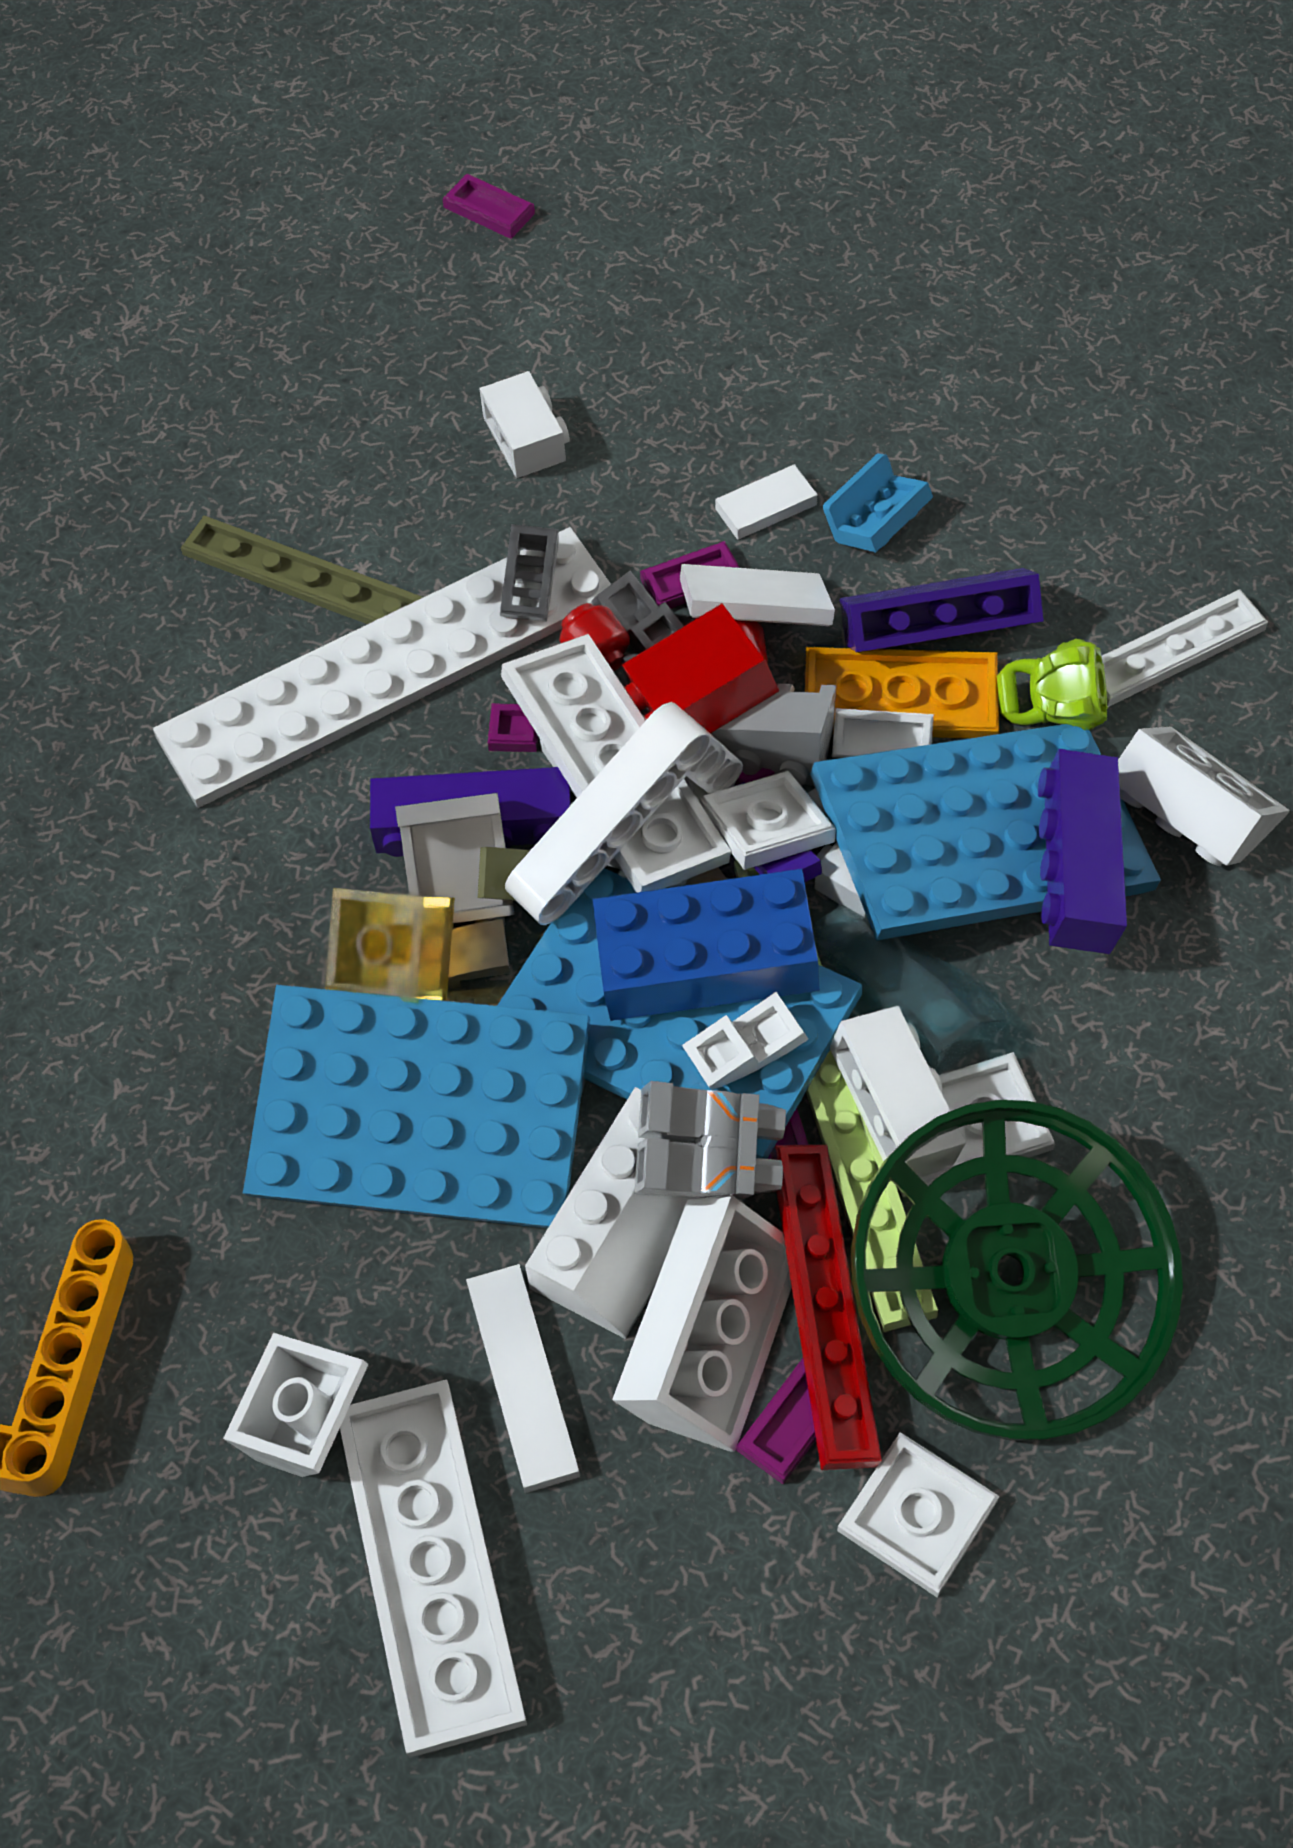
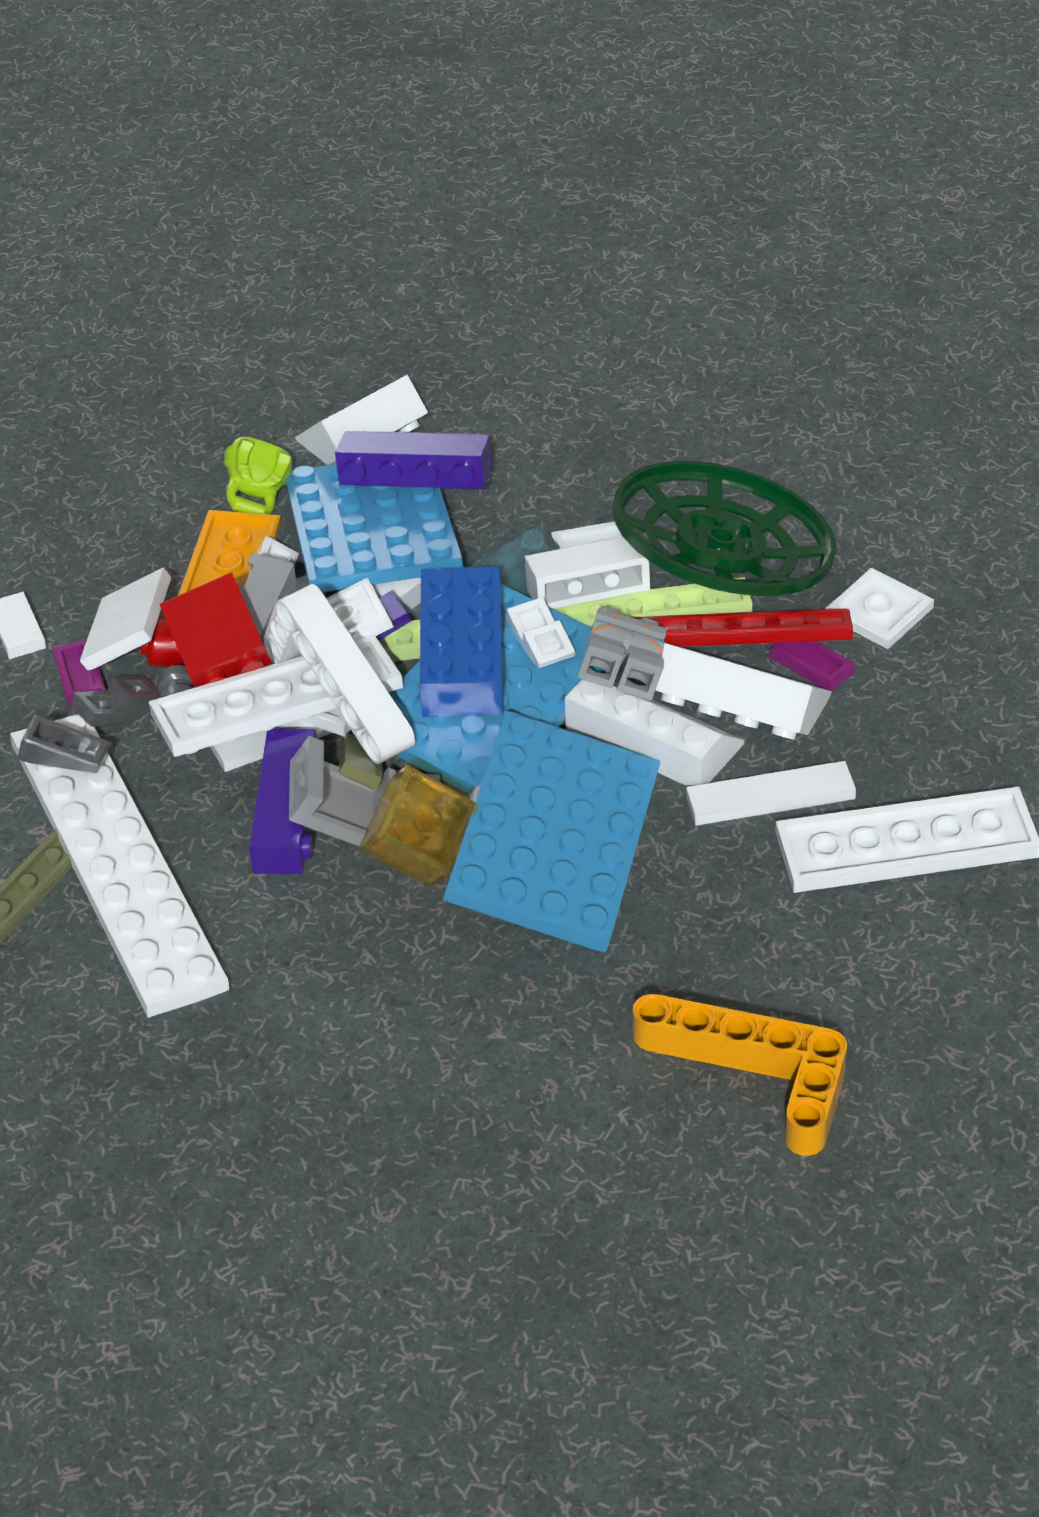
camera: 85 degrees left, 15 degrees down
(295, 1405) = (800, 882): white slope -> none
(510, 730) = (201, 783): magenta tile -> none
(603, 629) = (130, 724): red head -> none
(874, 505) = (53, 556): dark azure bracket -> none
(941, 609) = (169, 522): dark purple brick -> none
(1180, 645) = (218, 413): white tile -> none

